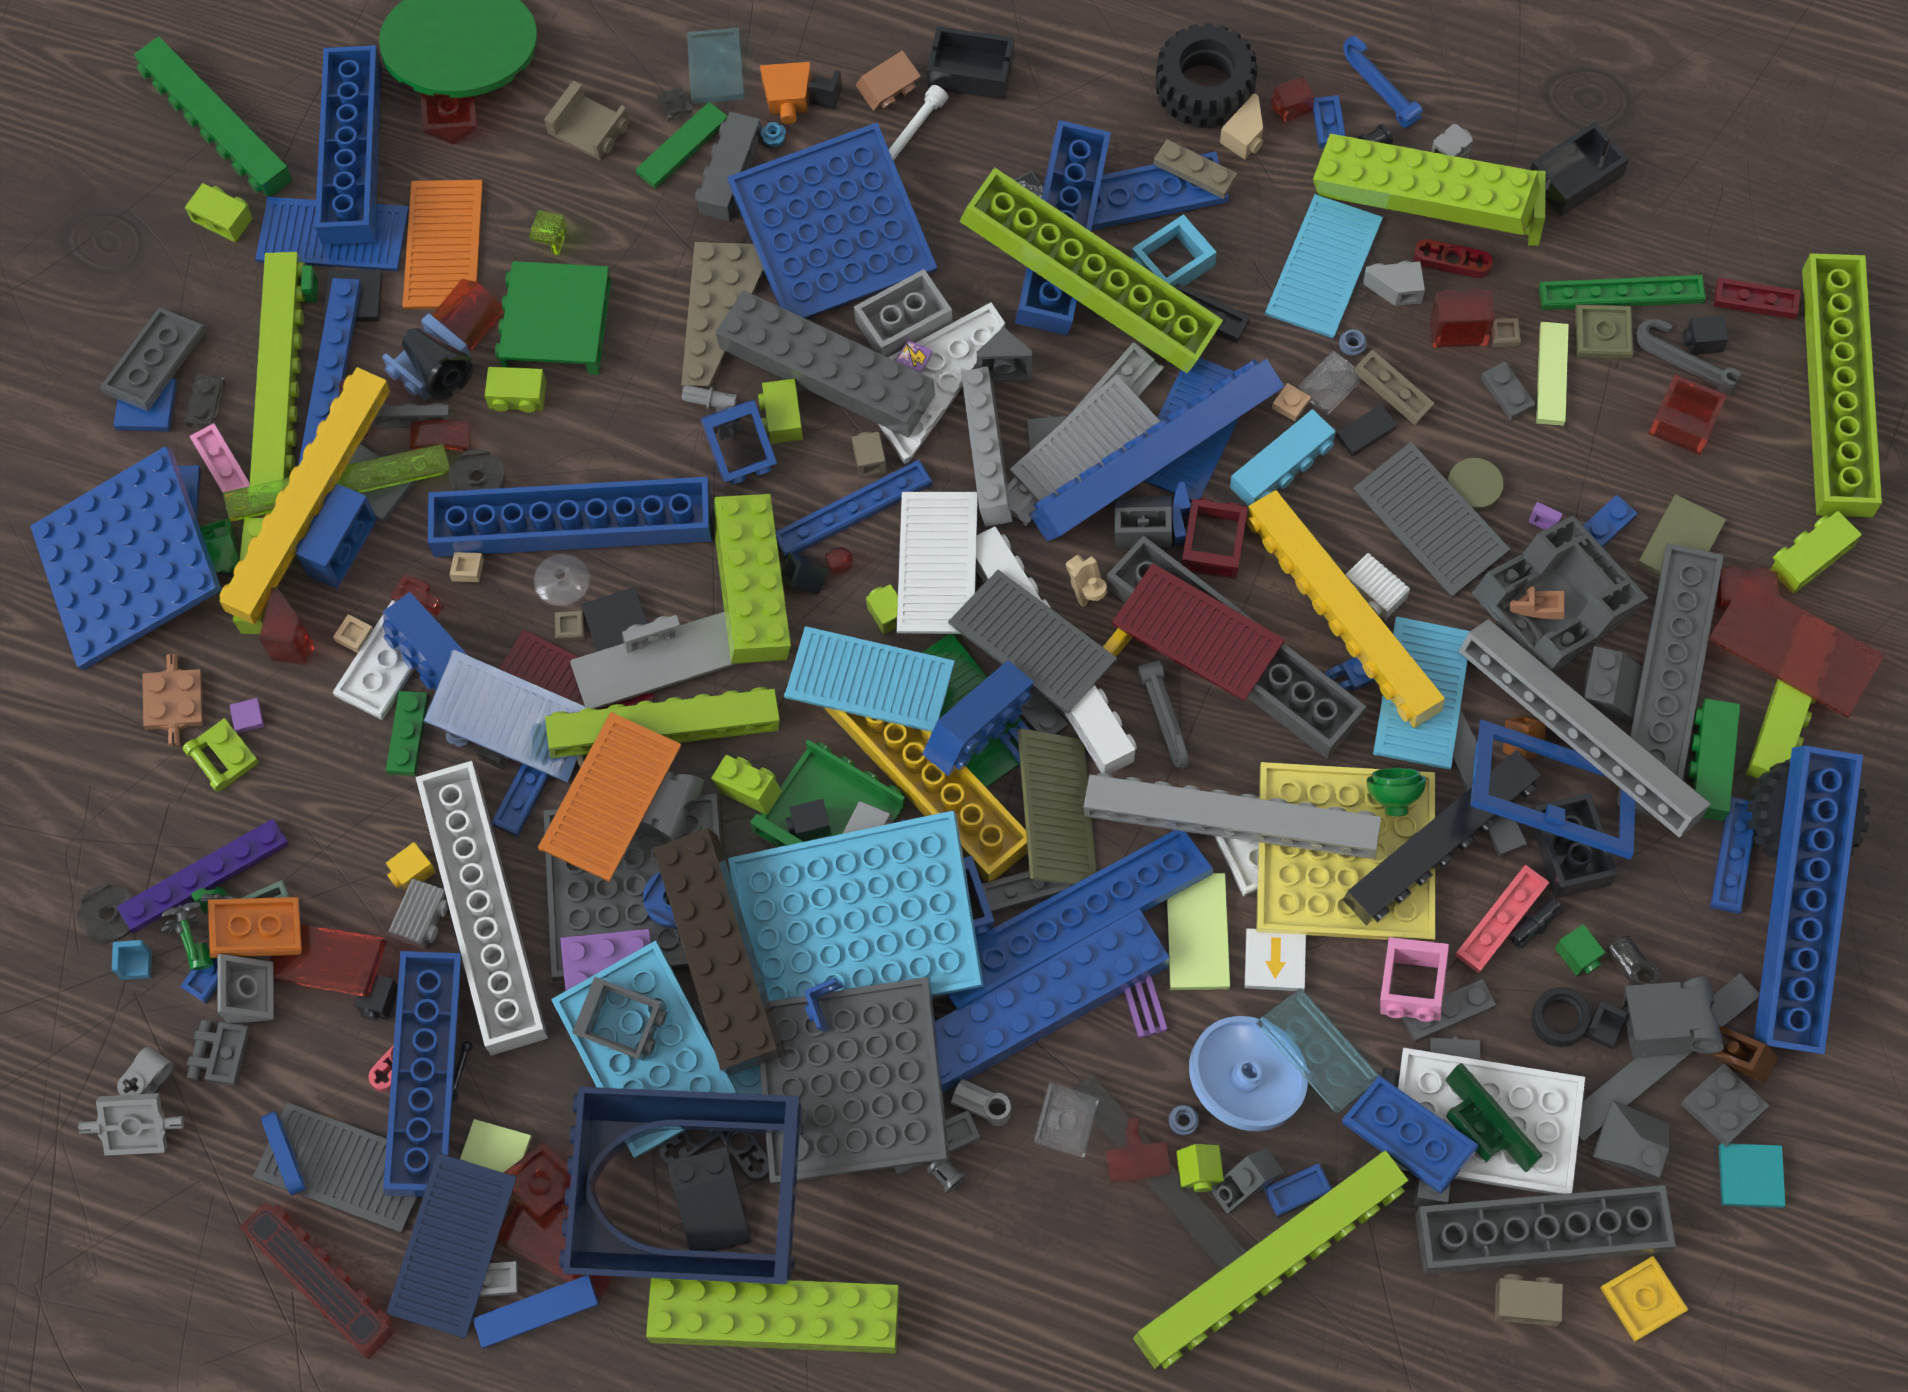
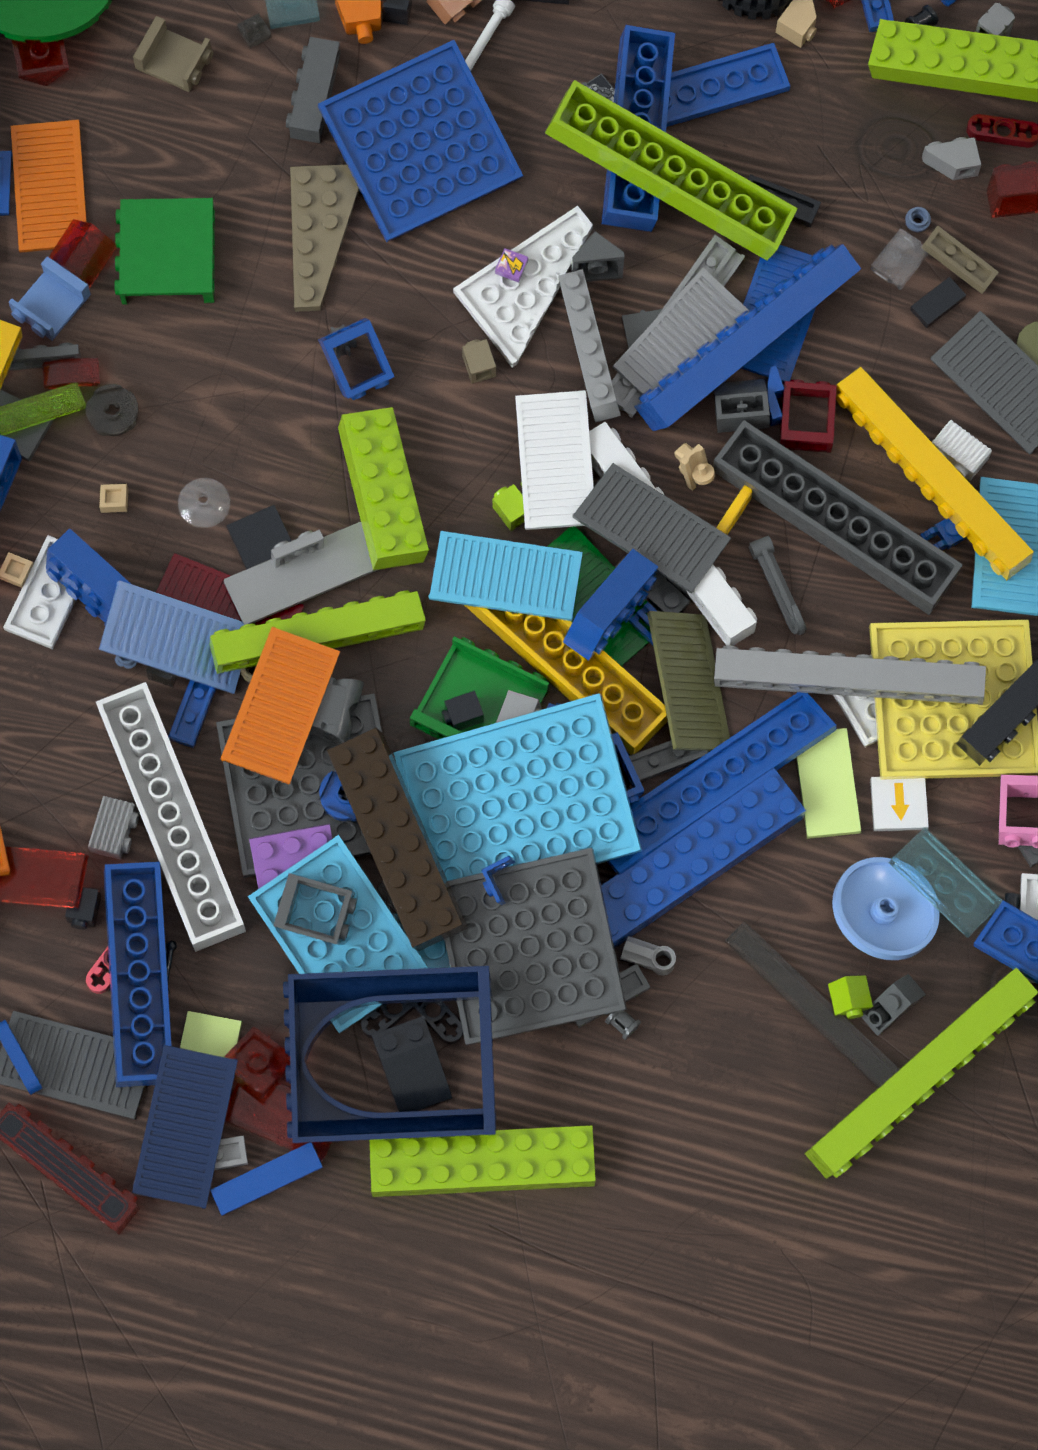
camera: 10 degrees left, 5 degrees up
(407, 733) = (78, 660): green plate -> none
(409, 865) = (96, 784): yellow brick -> none
(420, 592) = (63, 521): clear red plate -> none
(437, 363) = (61, 303): black cone -> none
(515, 389) = (138, 323): lime brick -> none
(549, 229) = (150, 165): clear neon green panel -> none
(569, 626) = (217, 546): dark tan tile -> none
(570, 516) = (206, 443): blue brick -> none
(681, 145) = (266, 71): green tile -> none
(708, 397) = (321, 317): light grey axle -> none
(747, 784) = (402, 682): lime brick -> none
(773, 140) = (355, 60): dark azure plate -> none
(782, 411) = (392, 325): lime brick -> none
(804, 573) = (431, 479): black panel -> none
(826, 363) = (430, 277): dark grey brick -> none
(839, 560) = (462, 464): clear red plate -> none
(852, 509) = (469, 414): blue tile -> none
(903, 314) = (496, 223): light grey brick -> none
(1066, 1120) = (727, 965): clear slope -> none
(1137, 1159) = (793, 994): clear red plate -> none
(1156, 1005) = (793, 876): medium lavender tile -> none
(1183, 1111) = (834, 948): sand blue plate -> none
(1191, 238) = (759, 131): medium azure window -> none
(1195, 169) = (756, 61): dark tan plate -> none
(1198, 632) = (803, 507): dark red window -> none
(1283, 458) = (864, 336): medium azure brick -> none
(1291, 402) = (866, 281): light nougat plate -> none
(1297, 1190) = (938, 1008): blue tile -> none
(1323, 266) = (884, 146): medium azure window -> none
(1396, 789) = (996, 638): green piece -> none

